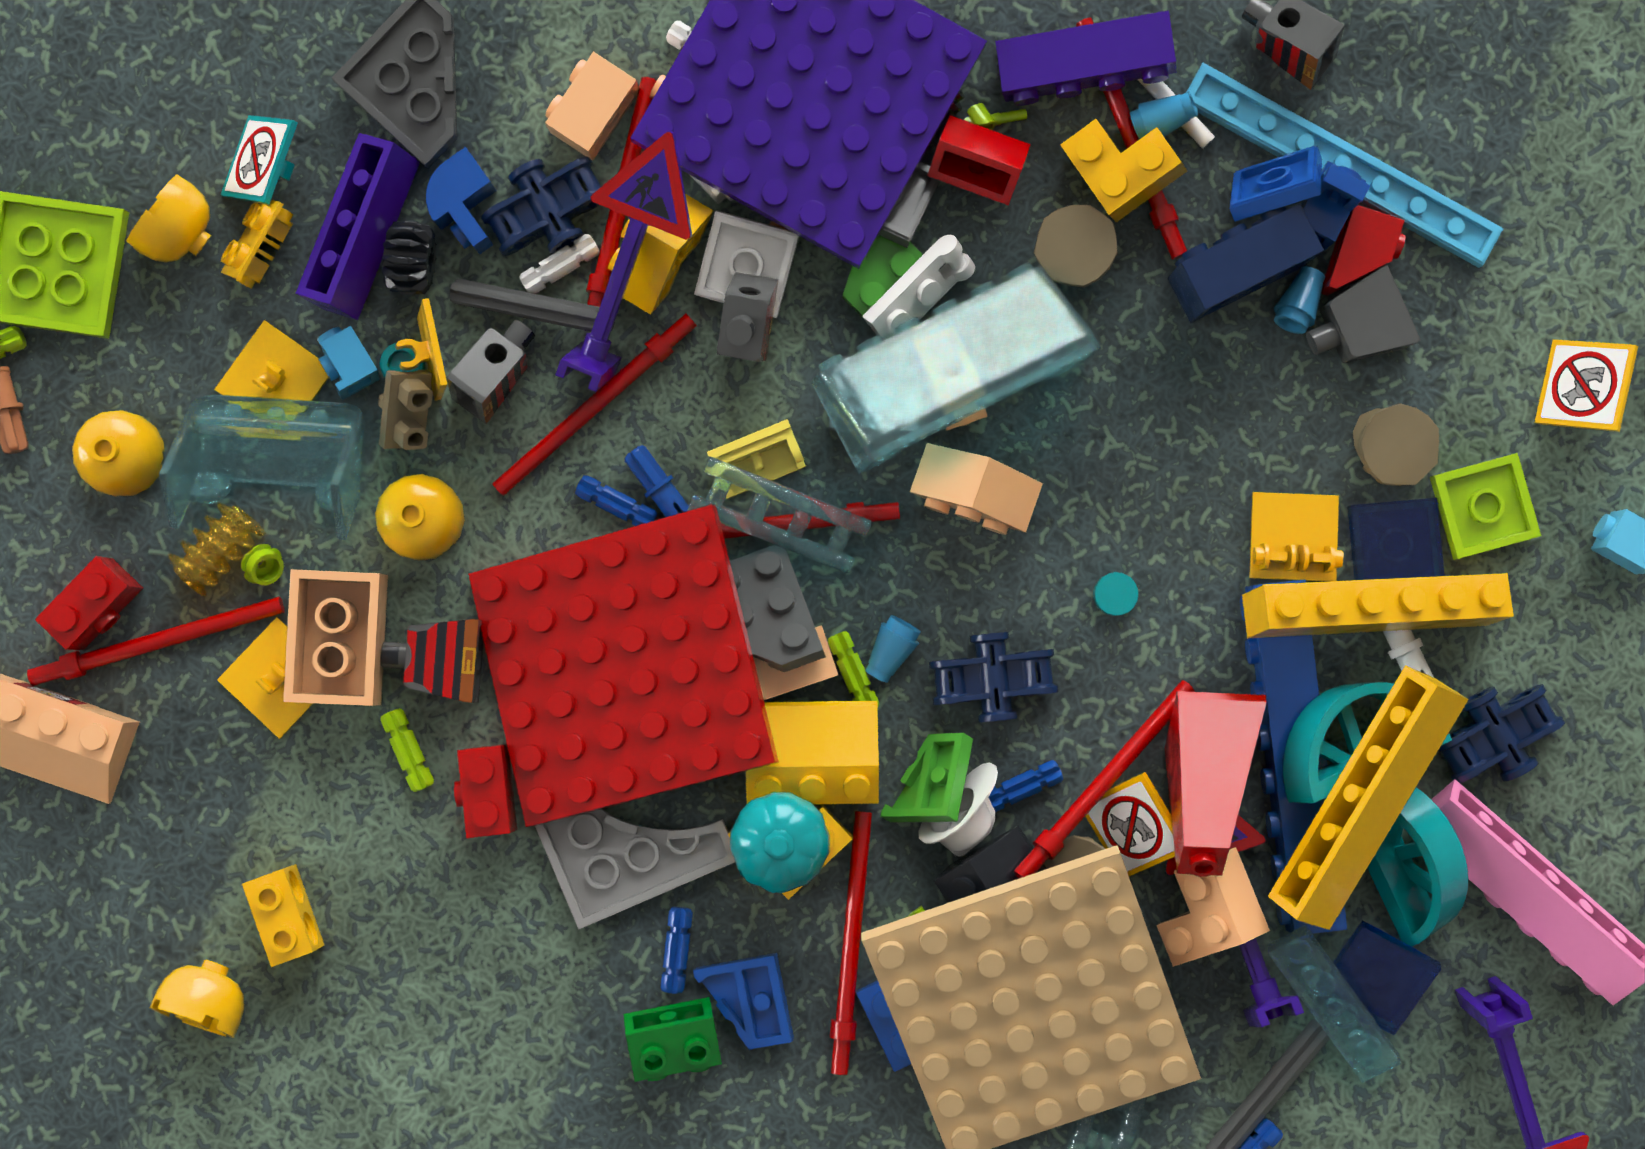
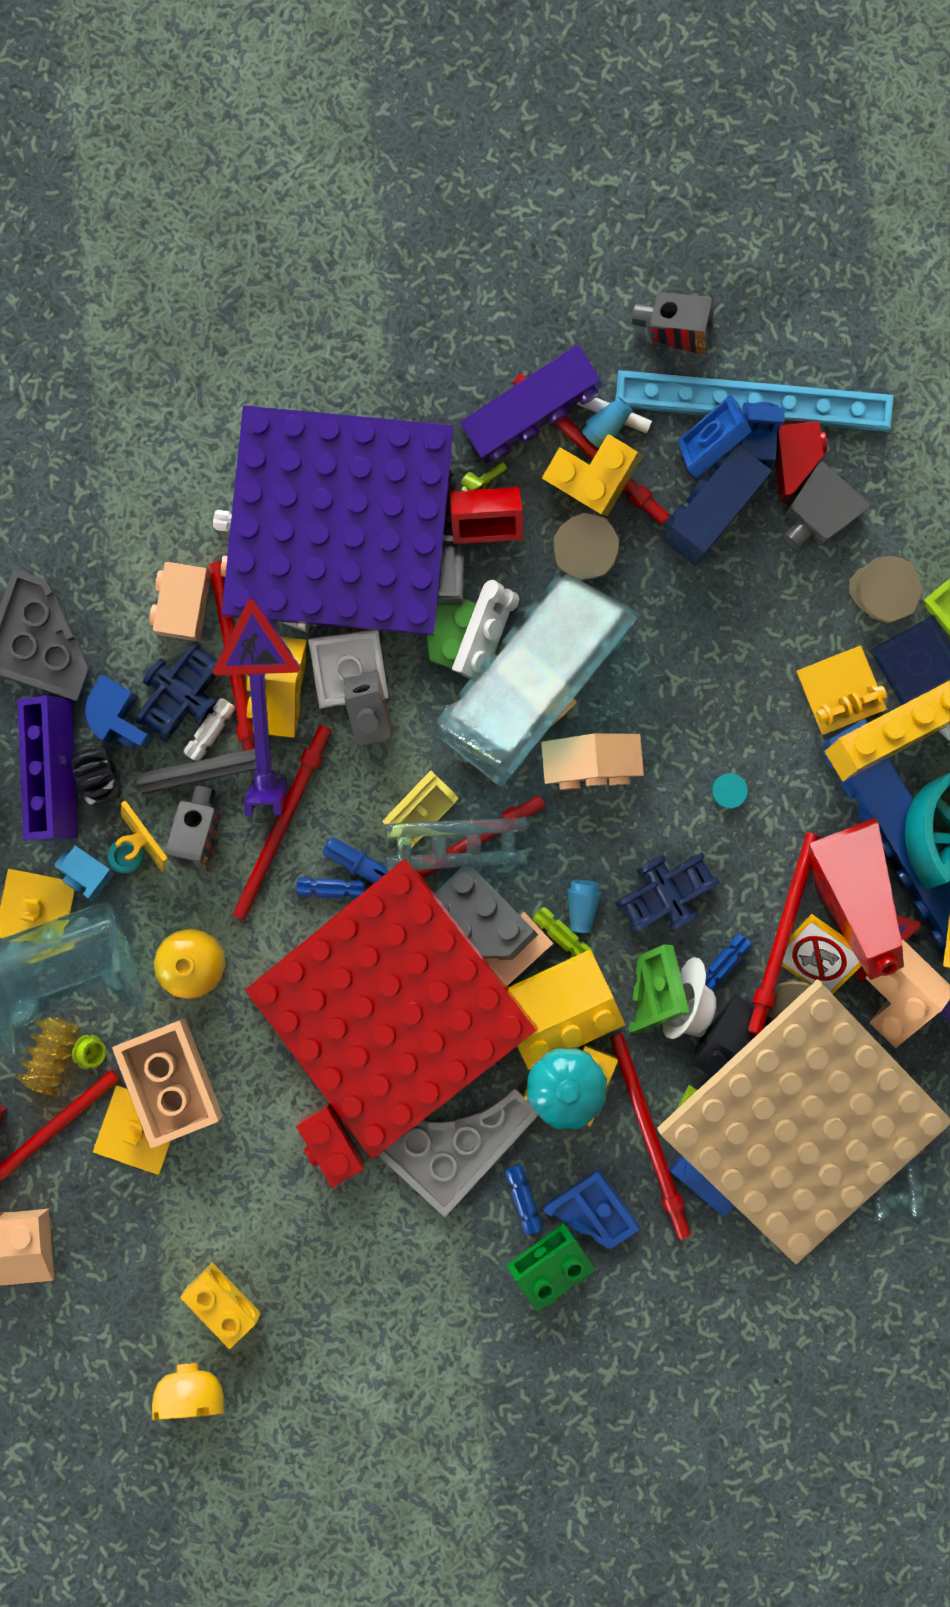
camera: 25 degrees left, 0 degrees up
(405, 409) = (143, 889): dark tan hips -> none
(407, 750) = (257, 1141): lime axle -> none
(440, 658) = (252, 1063): torso -> none
(1300, 301) = (768, 515): dark azure cone -> none

